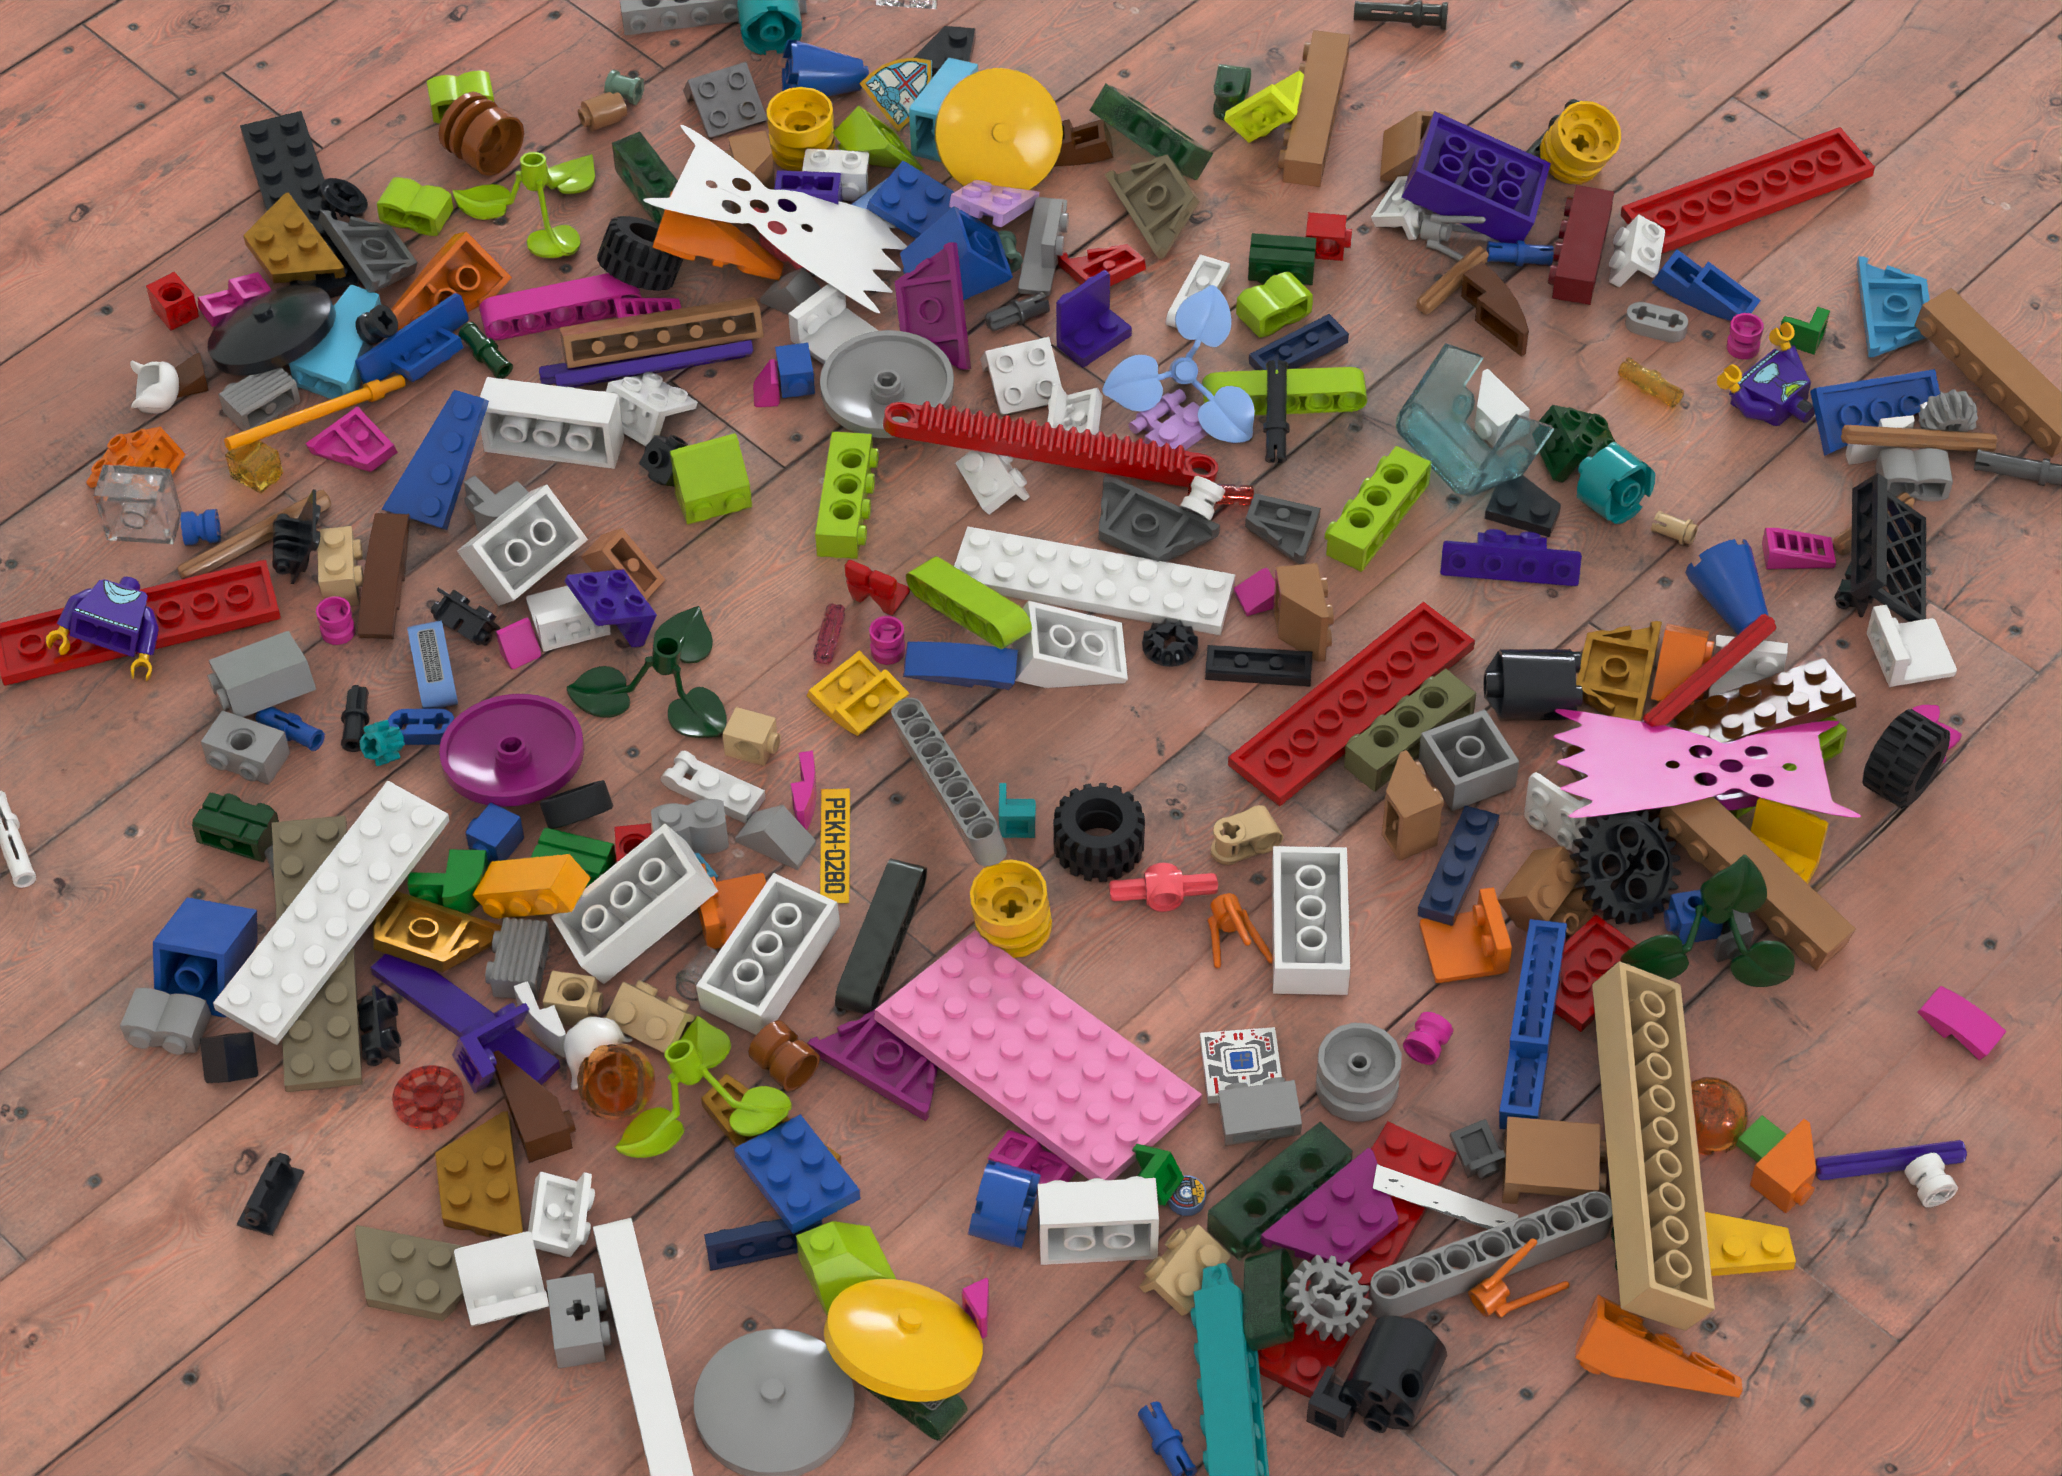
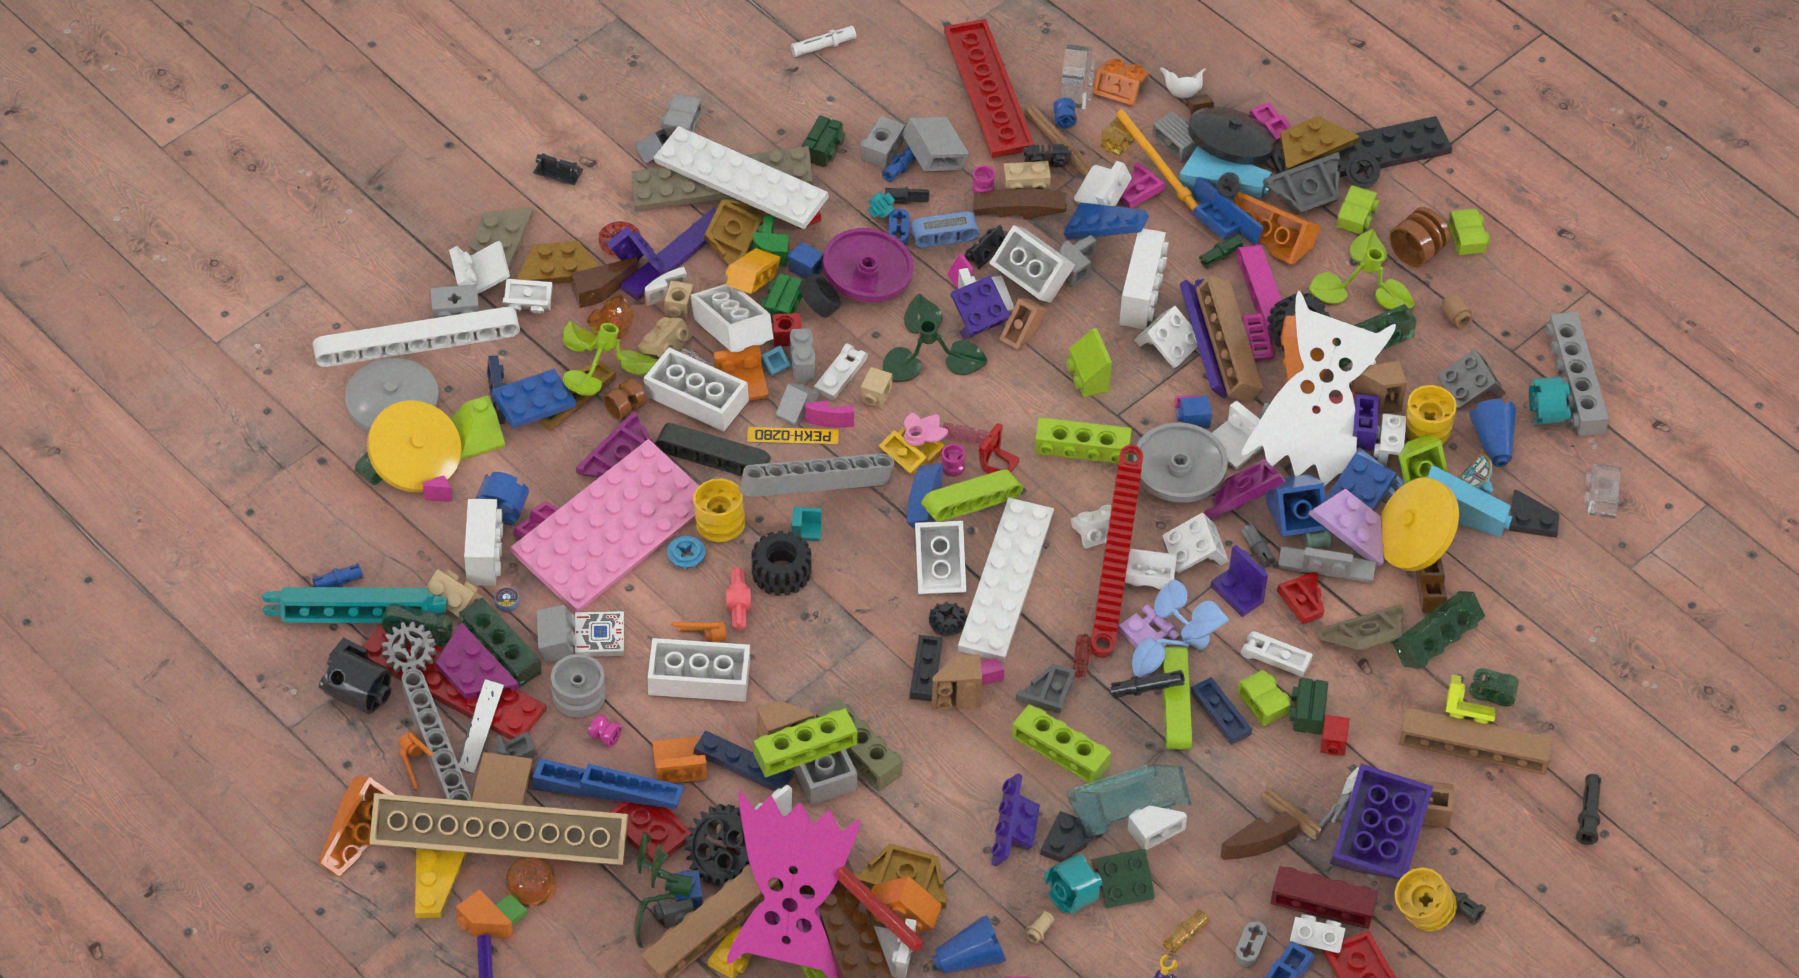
camera: 90 degrees right, 0 degrees up
(111, 618) = (975, 68): dark purple torso -> none
(172, 301) = (1264, 88): red brick -> none
(203, 949) = (730, 125): blue slope -> none
(364, 471) = (1104, 185): none -> white bracket
(379, 1014) = (669, 215): black hinge -> none
(519, 956) = (707, 273): light grey brick -> none
(585, 1037) = (645, 306): white hair -> none
(628, 87) = (1482, 323): sand green bush -> none
(658, 458) = (1116, 342): black brick -> none
(831, 671) = (923, 430): none -> bright pink plate
(1070, 950) = (684, 544): none -> dark azure gear
(1149, 524) = (1053, 609): dark grey wing -> none
(1159, 1165) = (515, 578): green panel -> none
(1203, 497) = (1067, 636): white wheel -> none
(1249, 832) = (776, 644): tan piece -> none
(1347, 702) = (889, 715): red plate -> none
(1453, 760) = (798, 752): none -> lime brick
(1520, 253) = (1321, 858): blue pin -> none
(1533, 683) = (885, 813): black cylinder -> none
(1547, 892) = (700, 796): medium nougat slope -> none

